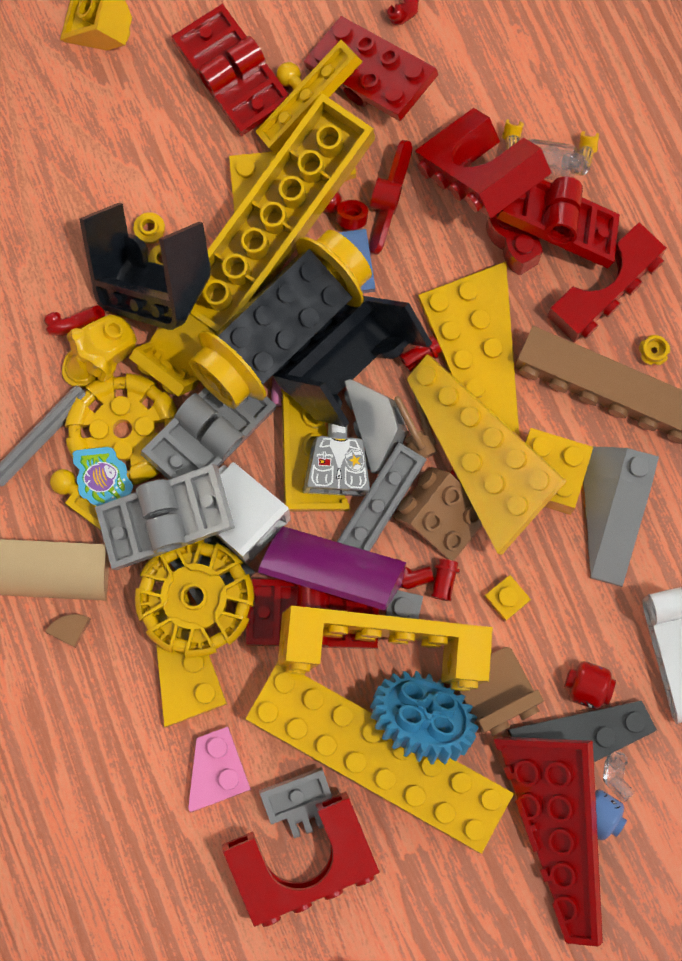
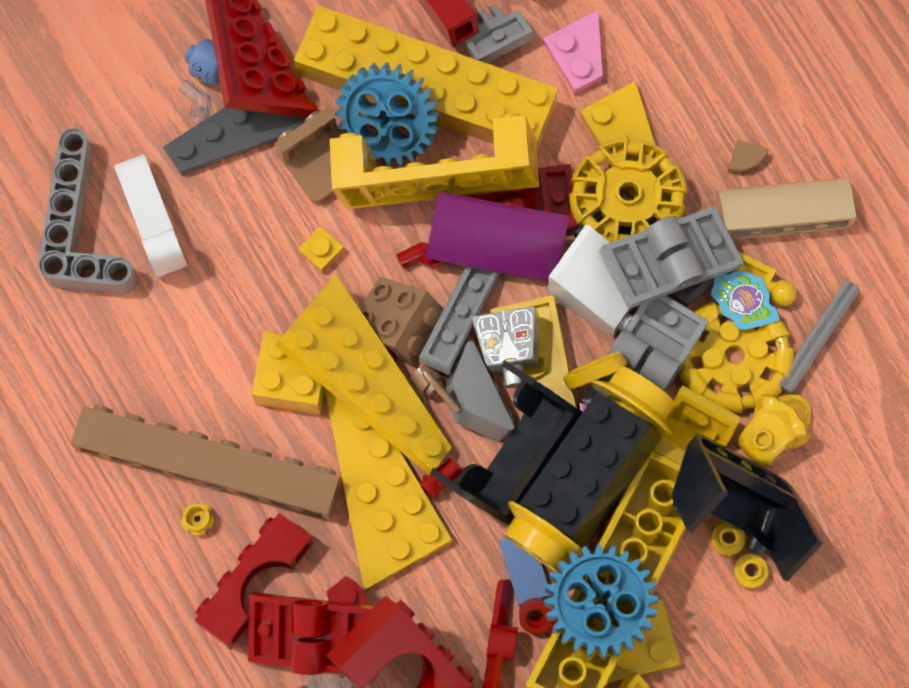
camera: 175 degrees right, 5 degrees down
(61, 327) = (807, 456): red arm -> none
(259, 418) = (594, 370): none -> yellow tile
(319, 177) = (628, 586): none -> dark azure gear
(405, 605) = (418, 223): light grey plate -> none
(444, 579) = (385, 255): red pin -> none
(590, 685) = (231, 177): red head -> none
(615, 501) = (222, 353): light grey wedge -> none

